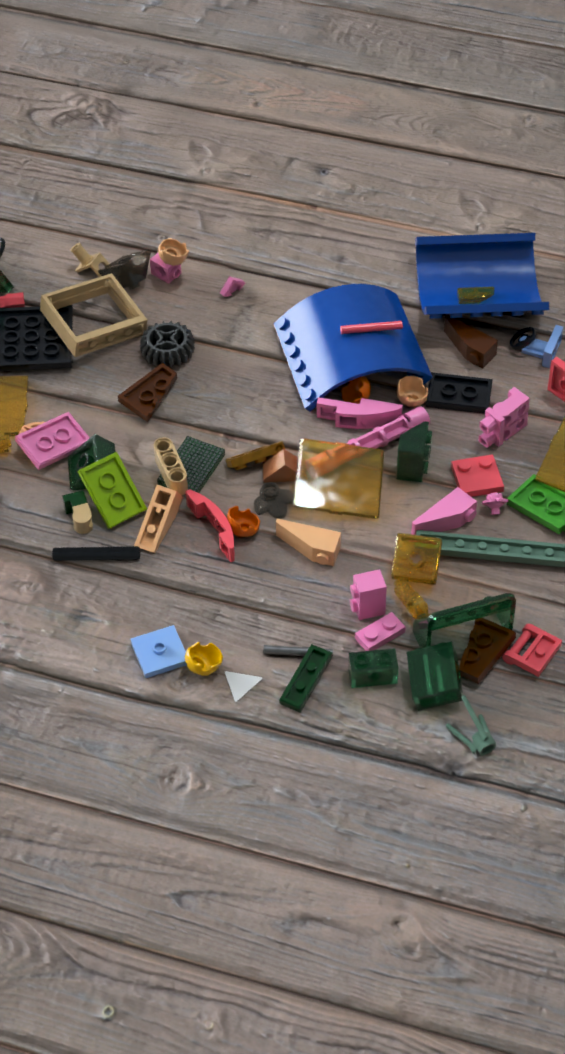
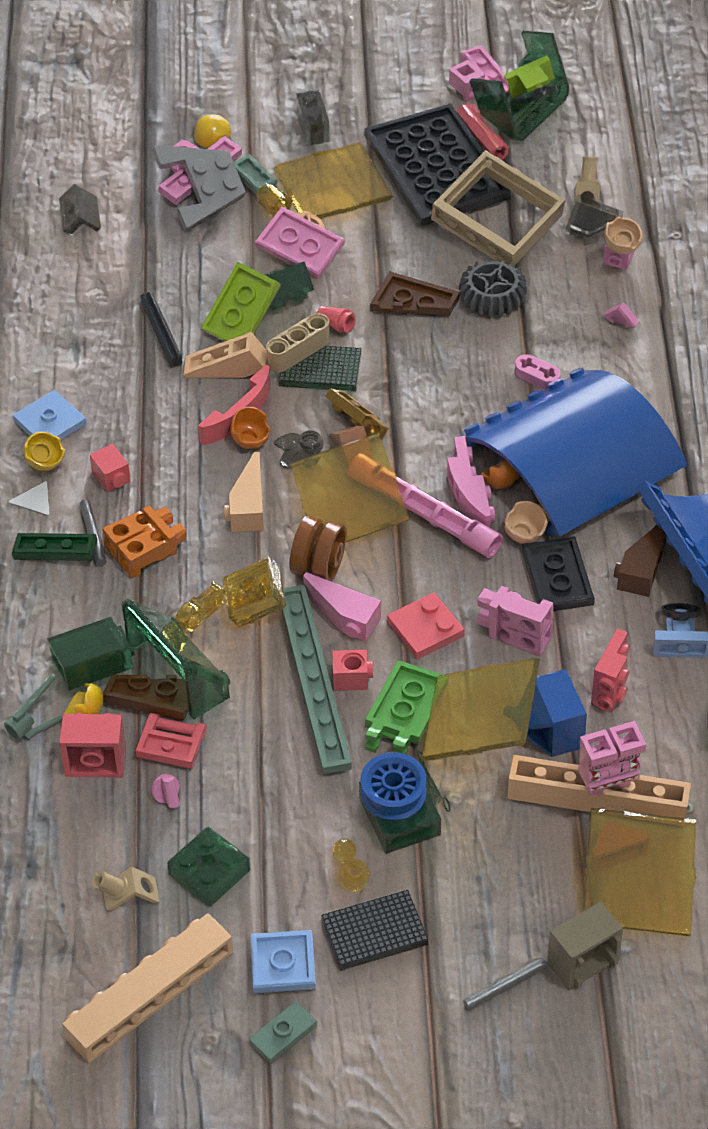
camera: 70 degrees right, 0 degrees up
(77, 505) = (203, 298): leg -> none
(146, 441) = (339, 319): none -> coral cone
(240, 620) = (110, 467): none -> coral brick
(262, 347) = (536, 371): none -> bright pink beam
(325, 616) = (143, 539): none -> orange hips
(347, 329) = (580, 439): coral bar -> none
(368, 594) = (179, 561): bright pink brick -> none
(373, 668) = (83, 595): clear green brick -> none
(380, 632) = (146, 593): bright pink plate -> none
(393, 508) = (317, 548): none -> dark orange wheel
(413, 453) = (418, 546): clear green slope -> none
(482, 693) = (86, 702): none -> yellow hair
(494, 502) = (384, 649): bright pink plant -> none
(508, 524) = (351, 670): none -> coral brick
(531, 692) = (93, 745): none -> coral brick

